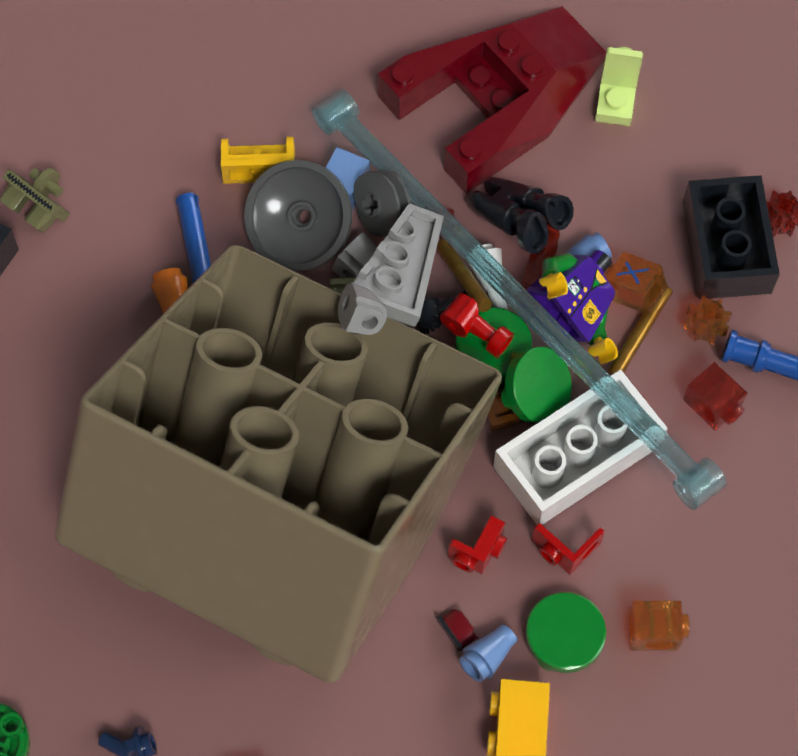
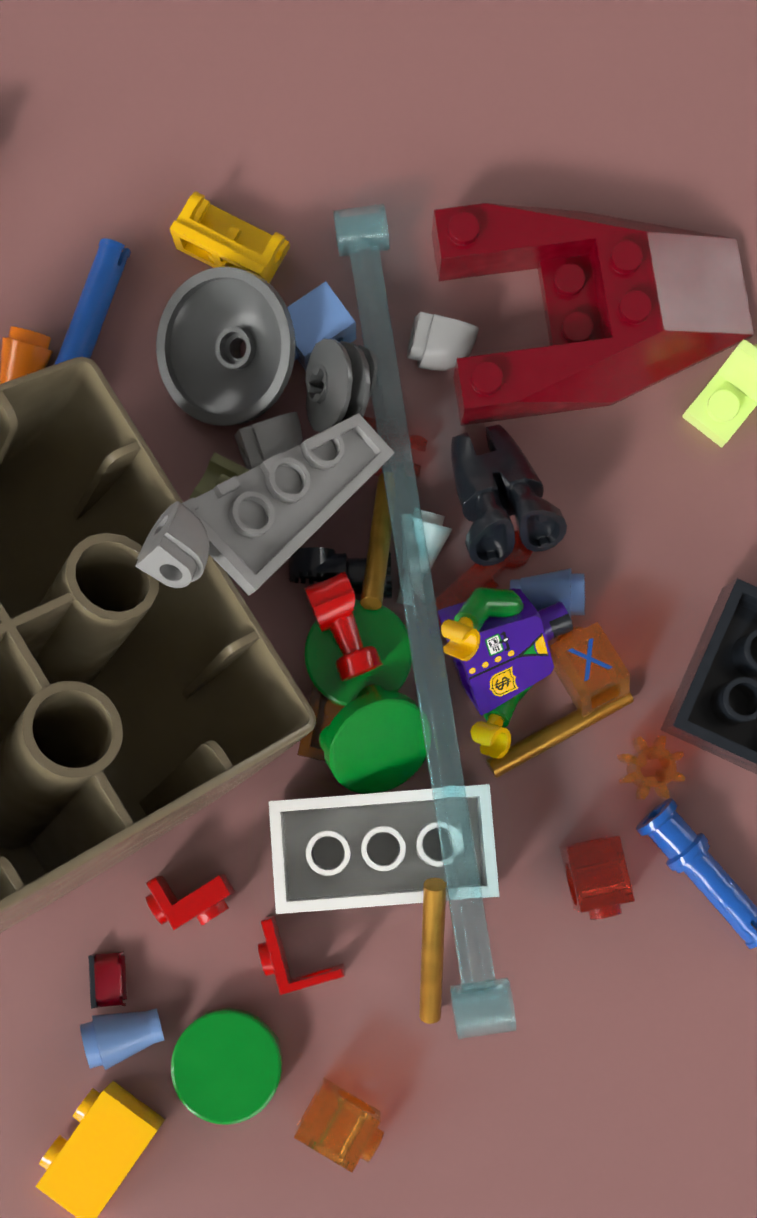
camera: 30 degrees right, 15 degrees up
(423, 149) = (439, 341): none -> light grey piece
(648, 486) = (432, 949): none -> pearl gold bar

